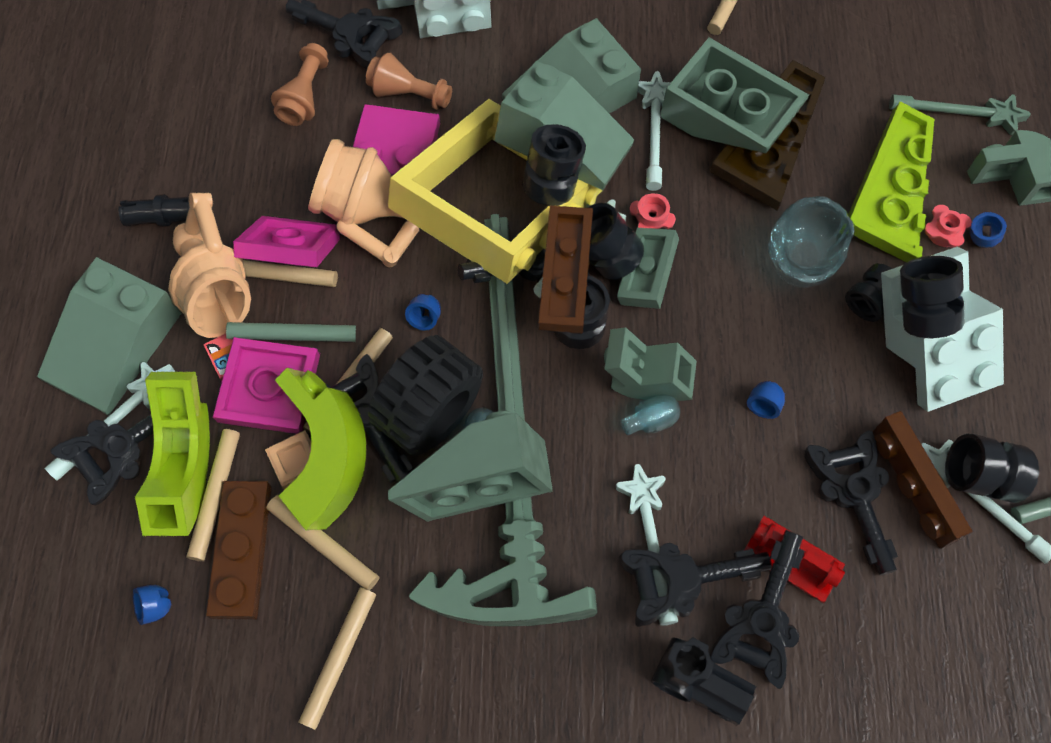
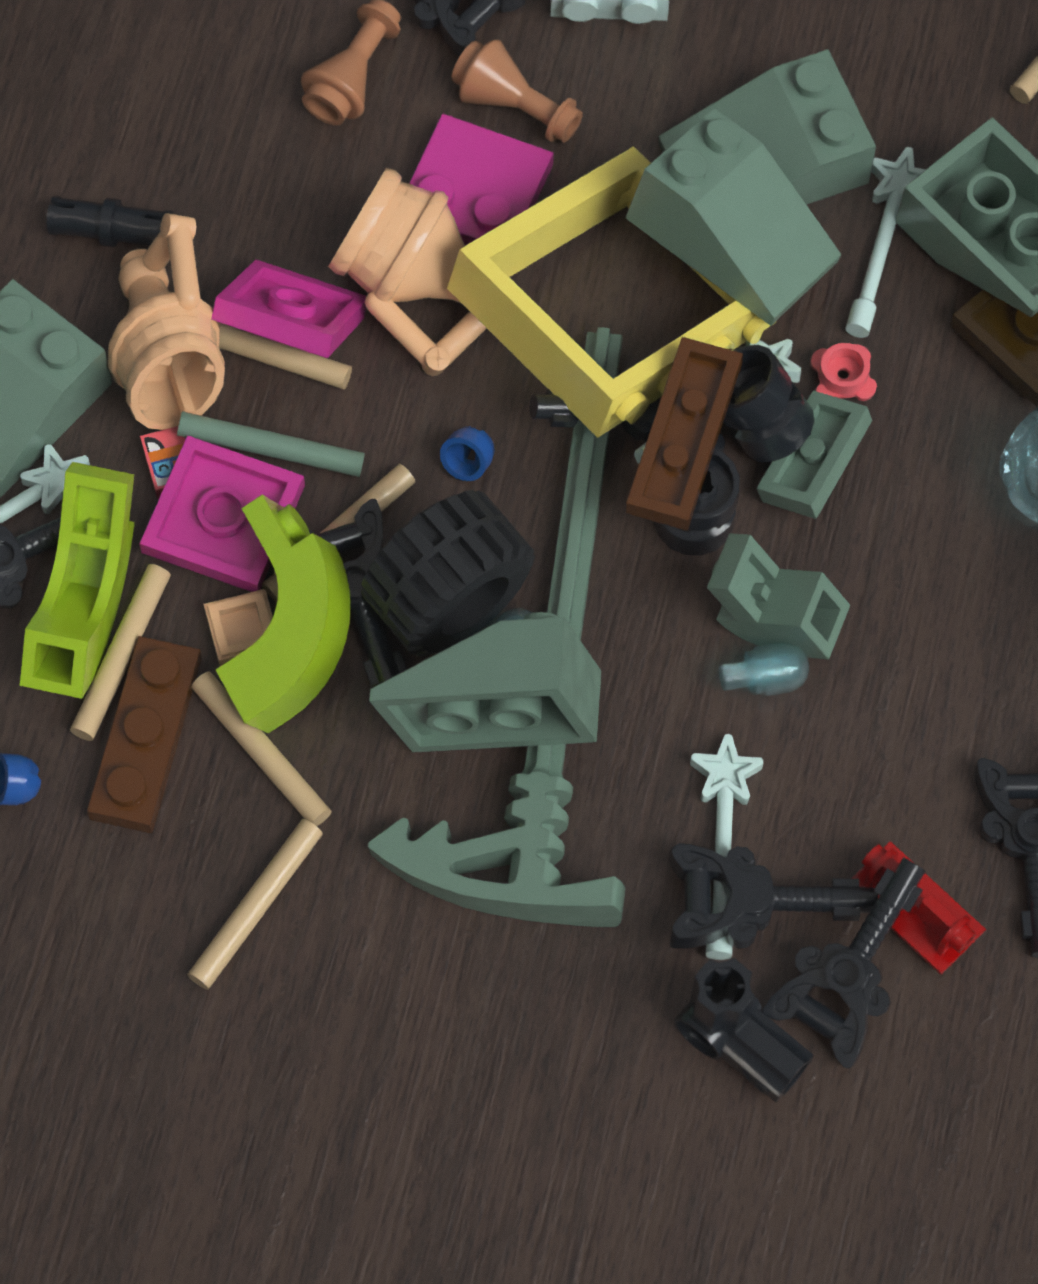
camera: 10 degrees right, 0 degrees up
(553, 164) = (700, 277): black wheel -> none
(766, 400) = (938, 682): blue hinge -> none

